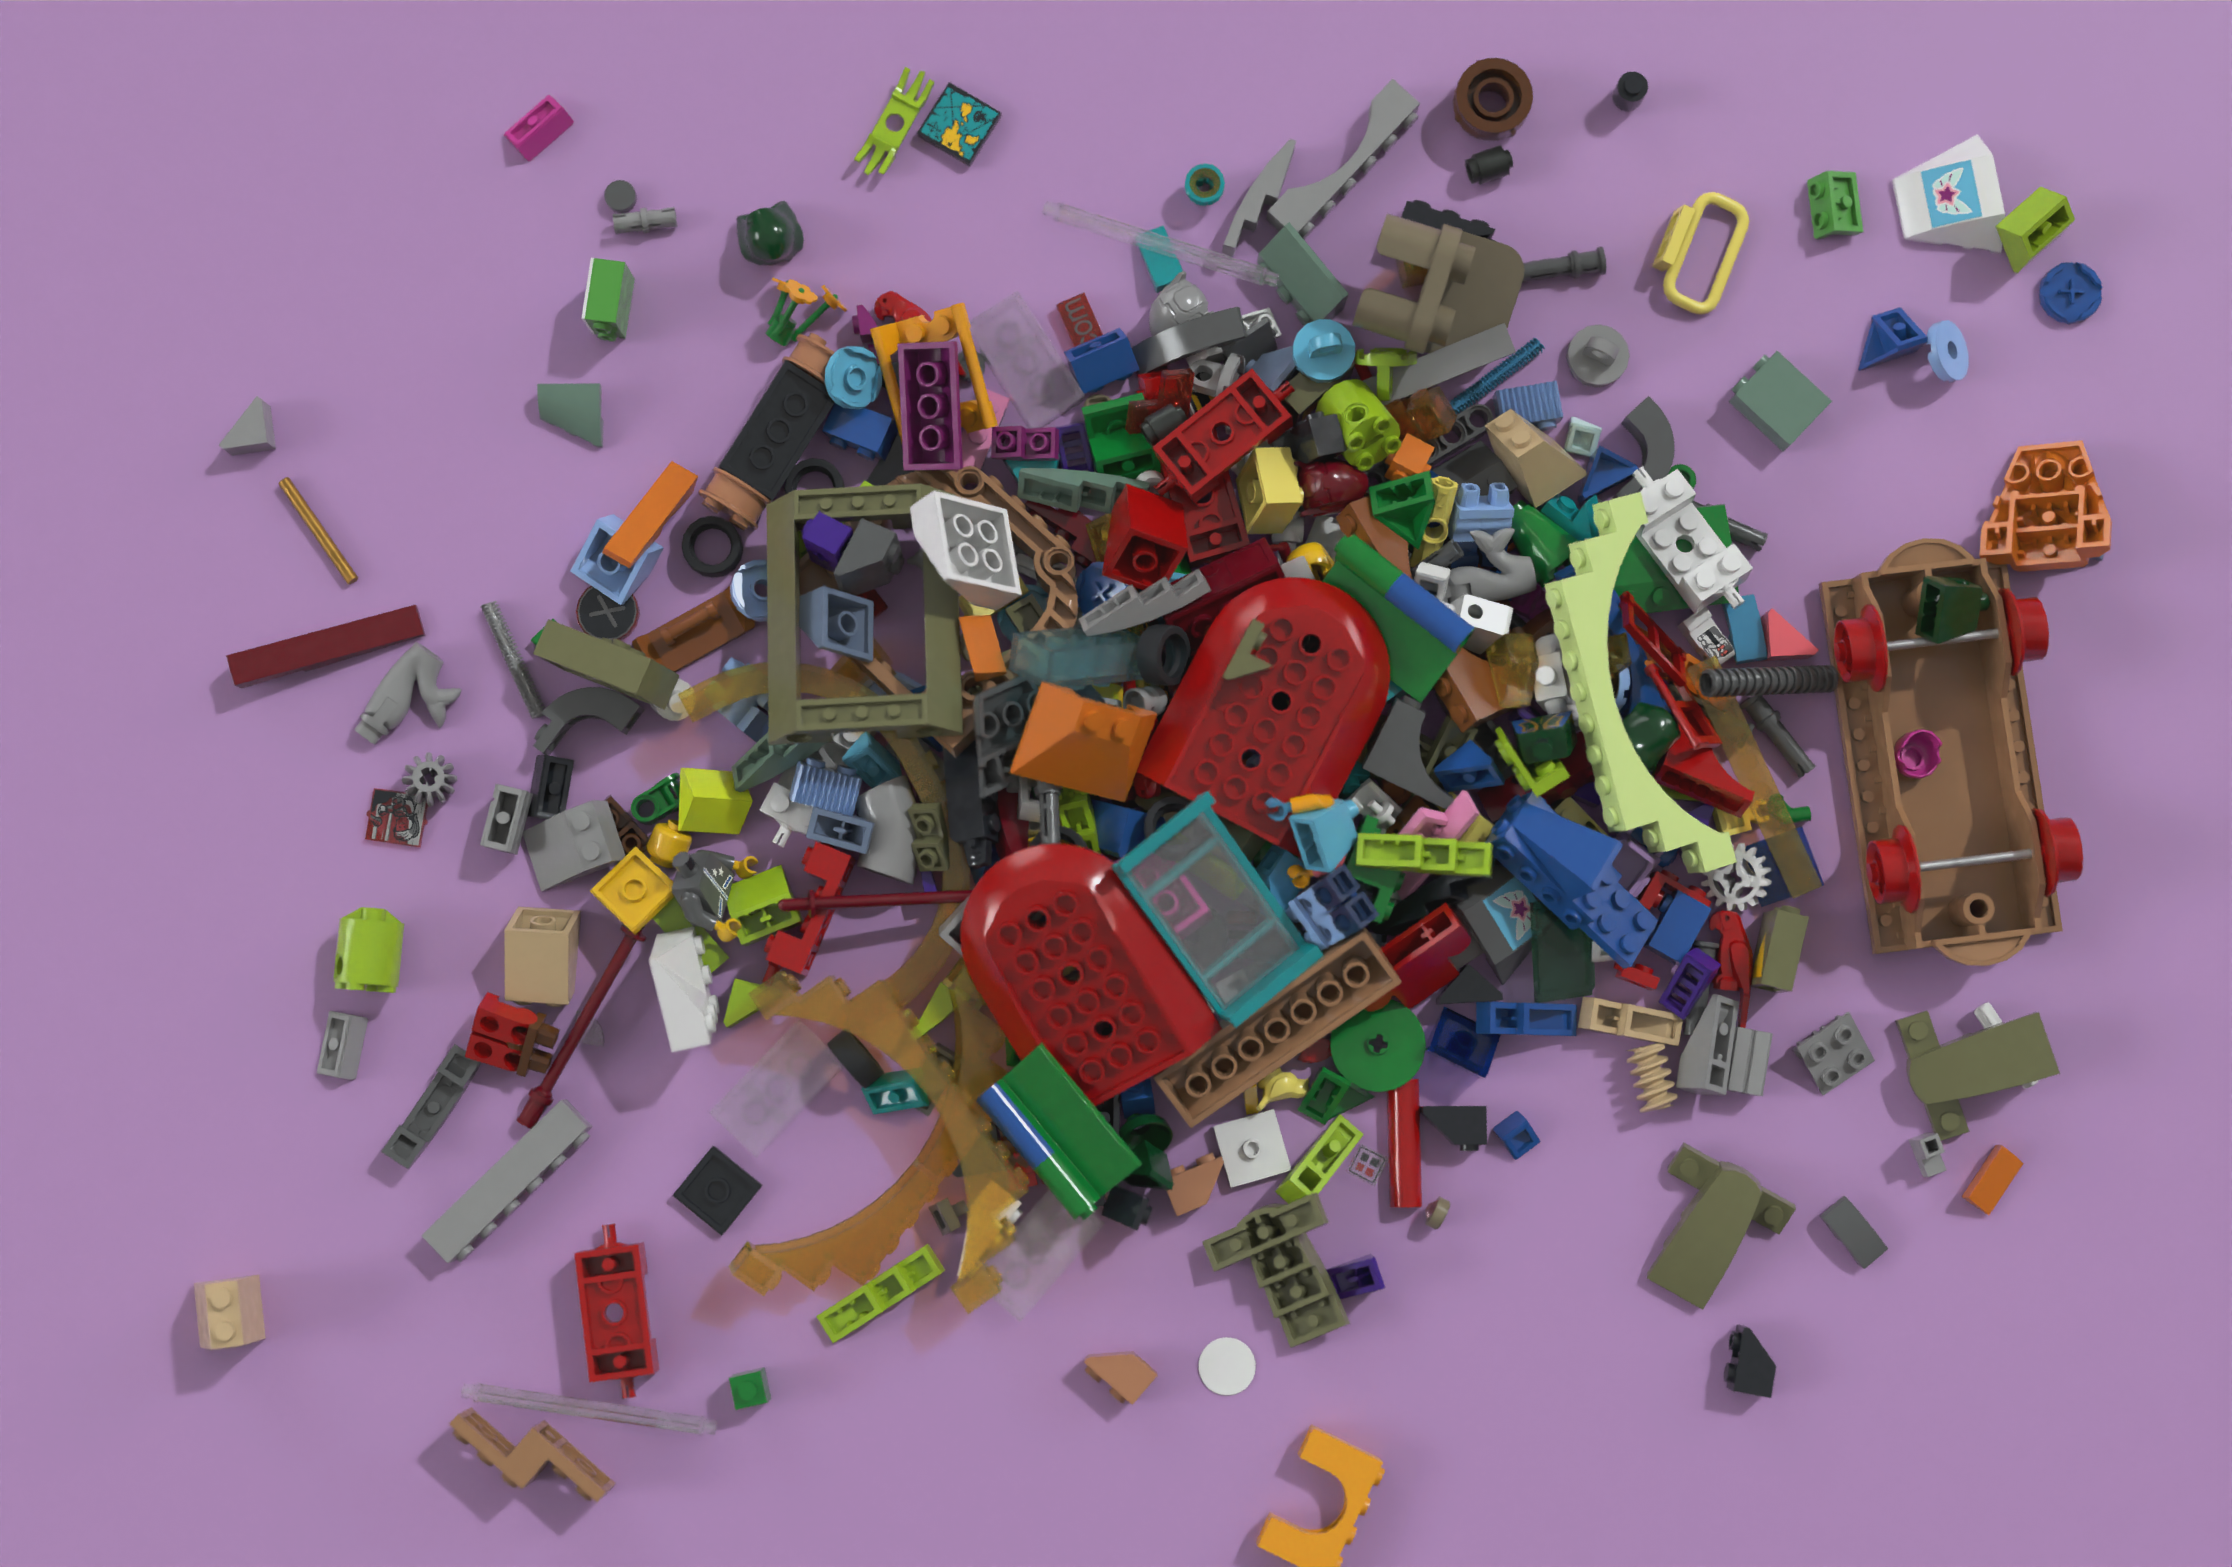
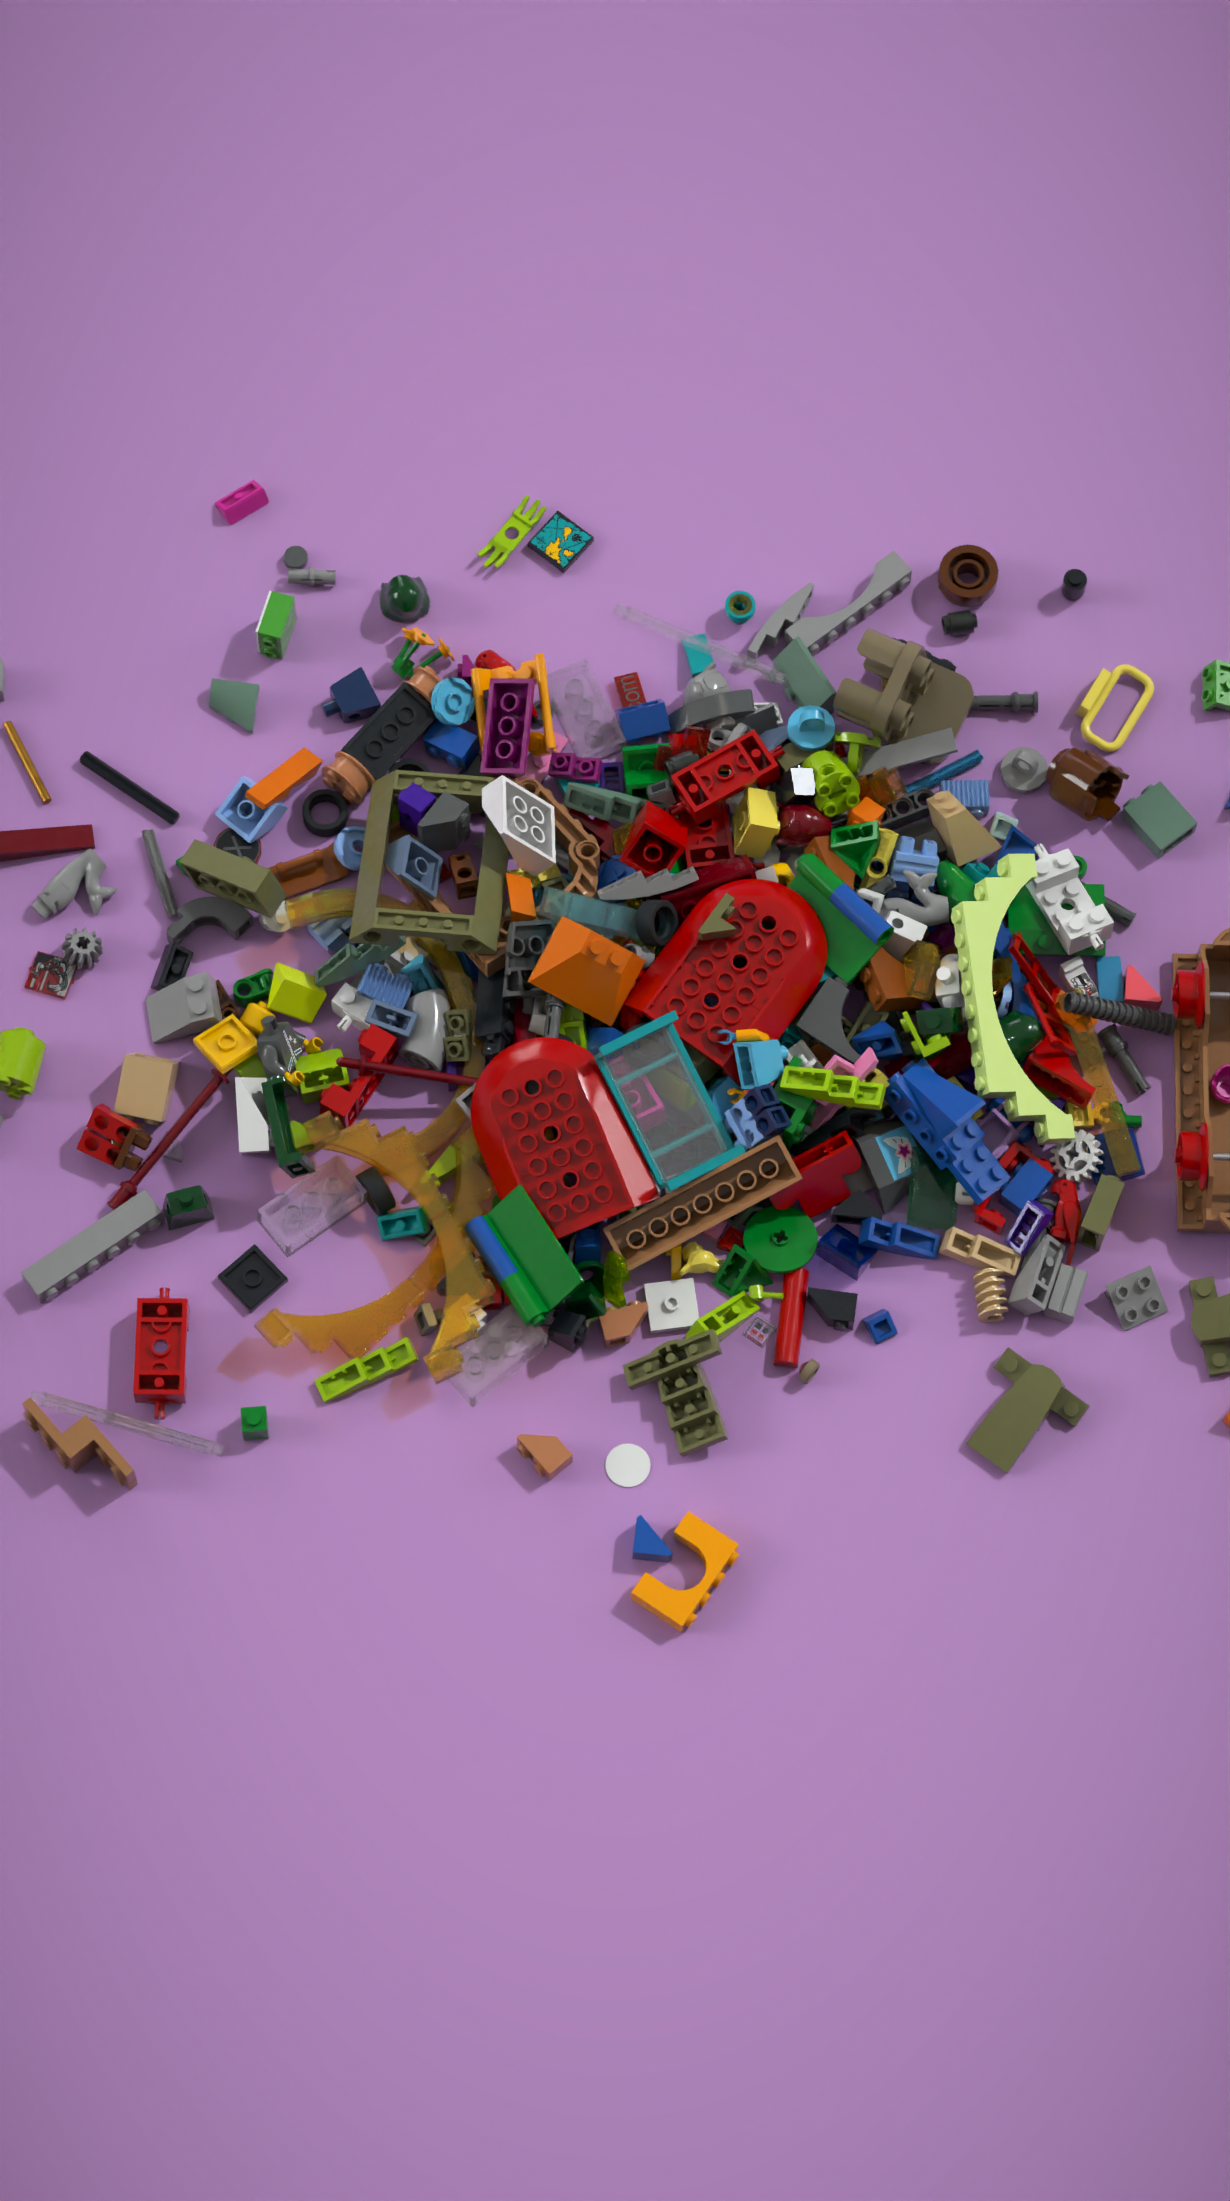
camera: 10 degrees right, 15 degrees down
(432, 1108) = (46, 1184): dark grey slope -> none
(455, 547) = (129, 787): none -> black axle
(506, 819) = (136, 983): light grey brick -> none
(622, 1112) = (187, 1207): none -> dark green torso
(722, 1004) = (289, 1160): none -> dark green panel
(723, 383) = (352, 698): none -> dark blue torso
(903, 625) = (463, 875): none -> reddish brown leg
(1142, 466) = (661, 792): none -> dark grey slope
(1177, 1135) = (614, 1275): none -> clear neon green slope
(1268, 1473) = (648, 1544): none -> blue slope
(1356, 1277) = (739, 1409): dark purple slope -> none
(1357, 1117) = (757, 1294): none -> lime hand
(1655, 437) = (1056, 826): dark grey arch -> none
(1682, 368) = (1085, 783): none -> reddish brown piece
(1750, 1365) = (1039, 1518): black slope -> none
(1854, 1232) = (1134, 1432): dark grey slope -> none
(1928, 1153) = (1198, 1378): light grey piece -> none

